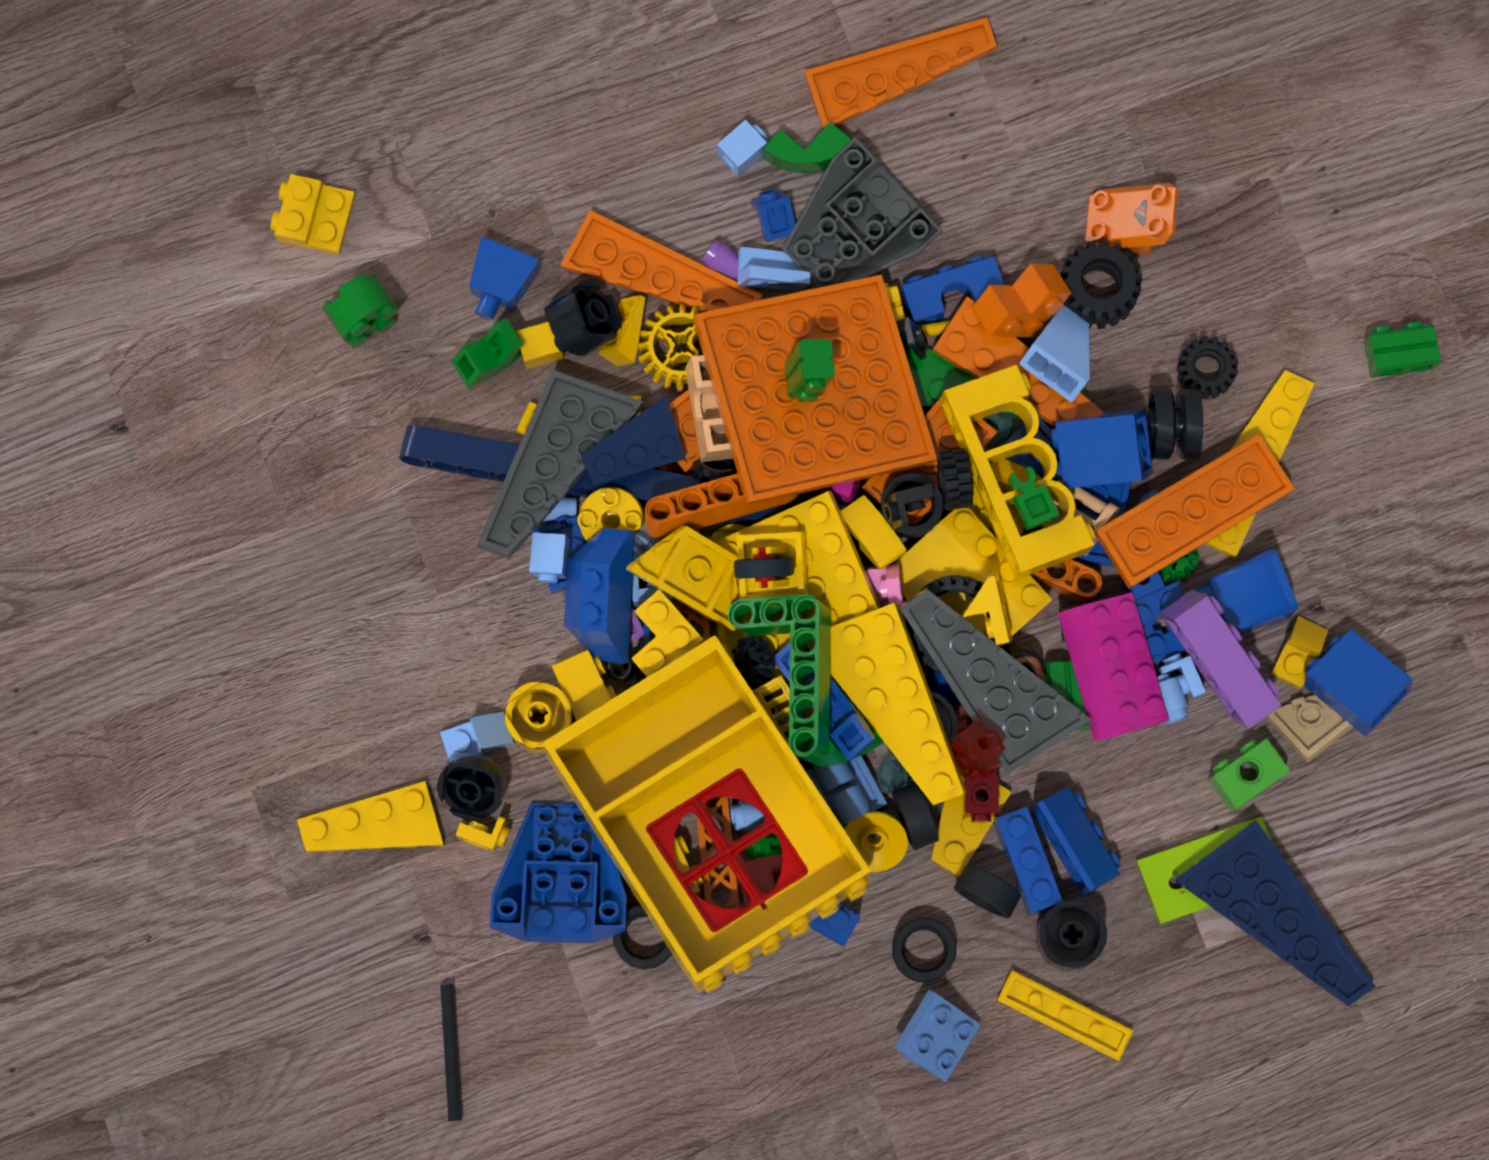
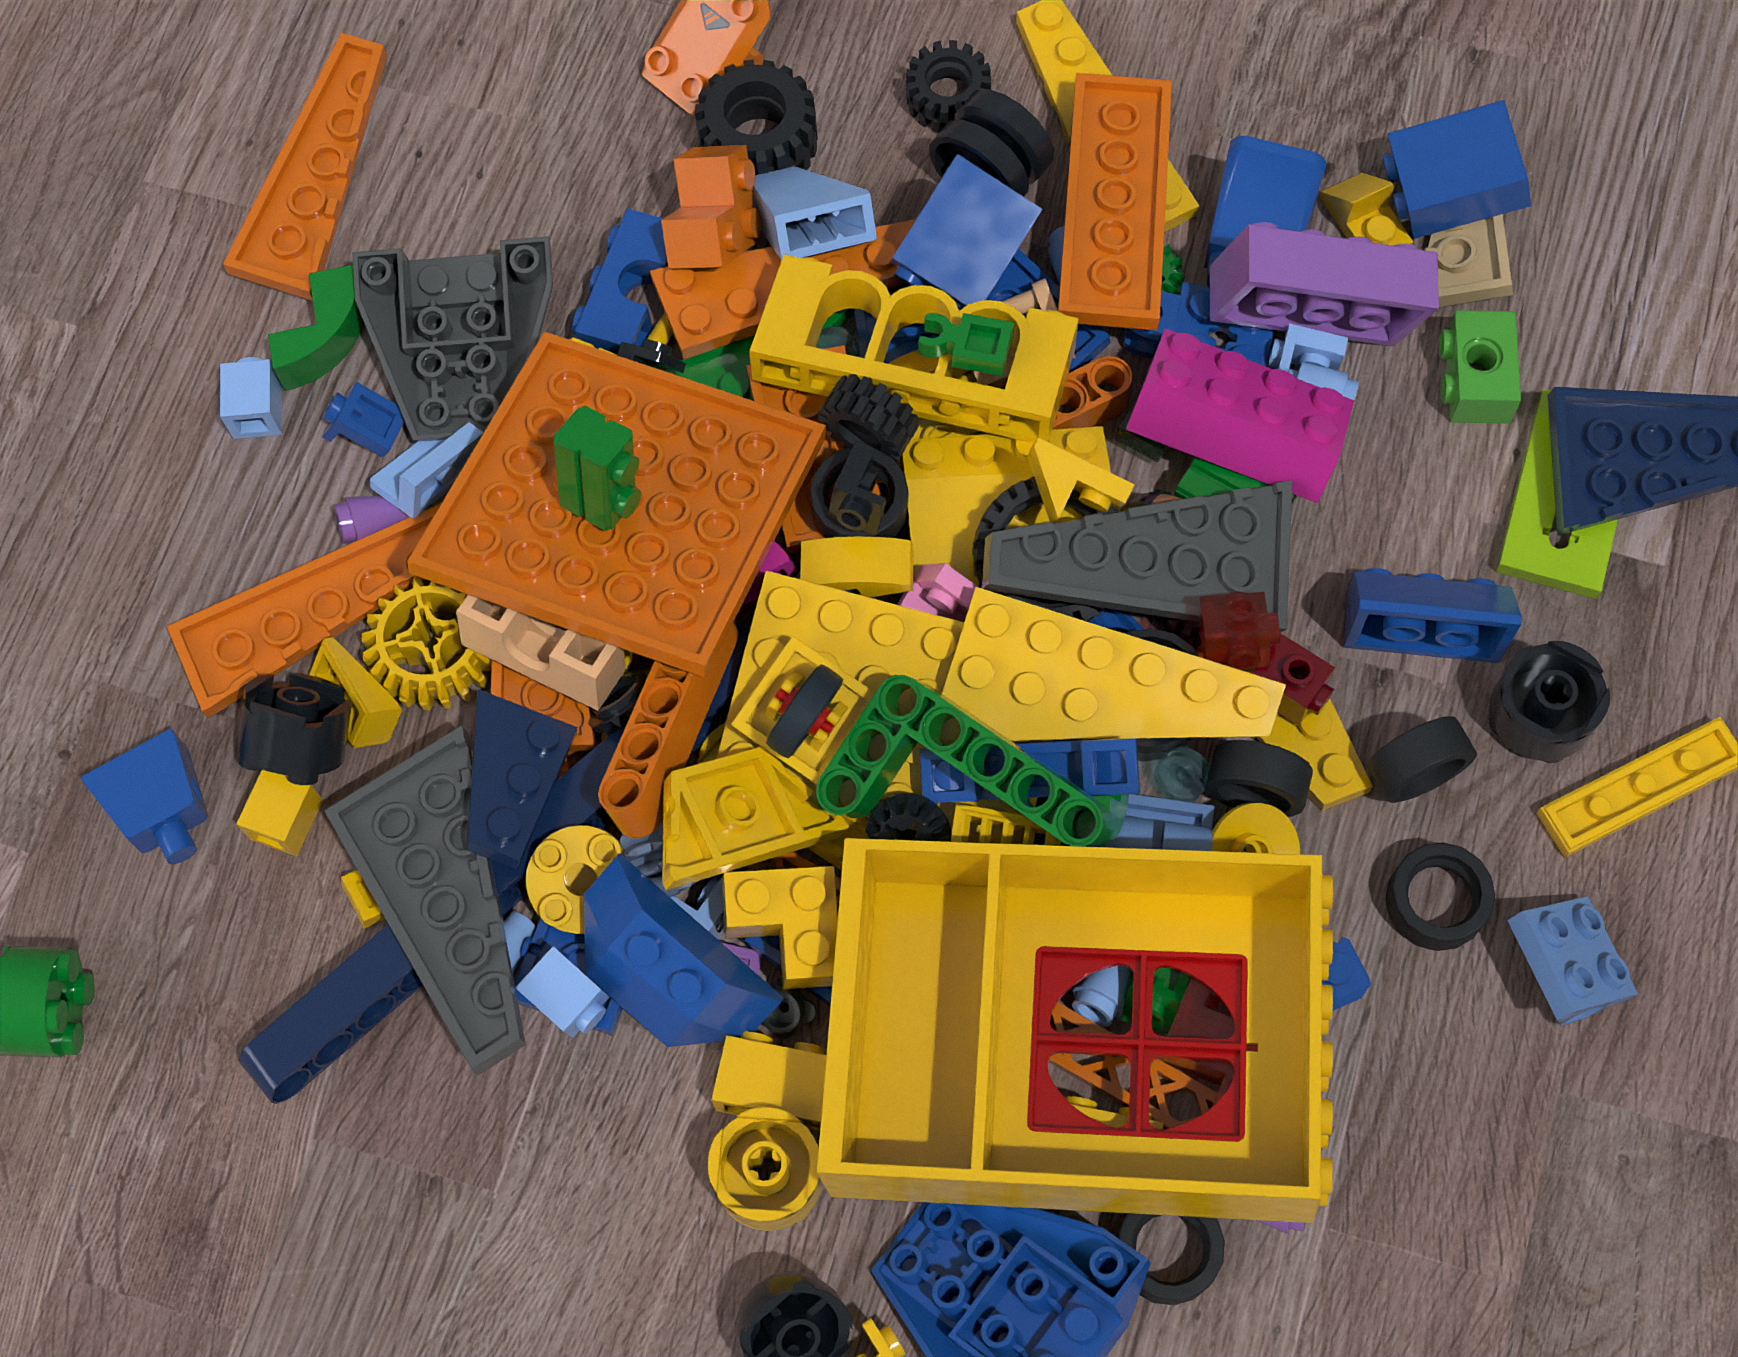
camera: 50 degrees left, 10 degrees down
(479, 735) = (726, 1274): light blue slope -> none
(489, 355) = (239, 881): green brick -> none
(1028, 861) = (1381, 676): blue arch -> none

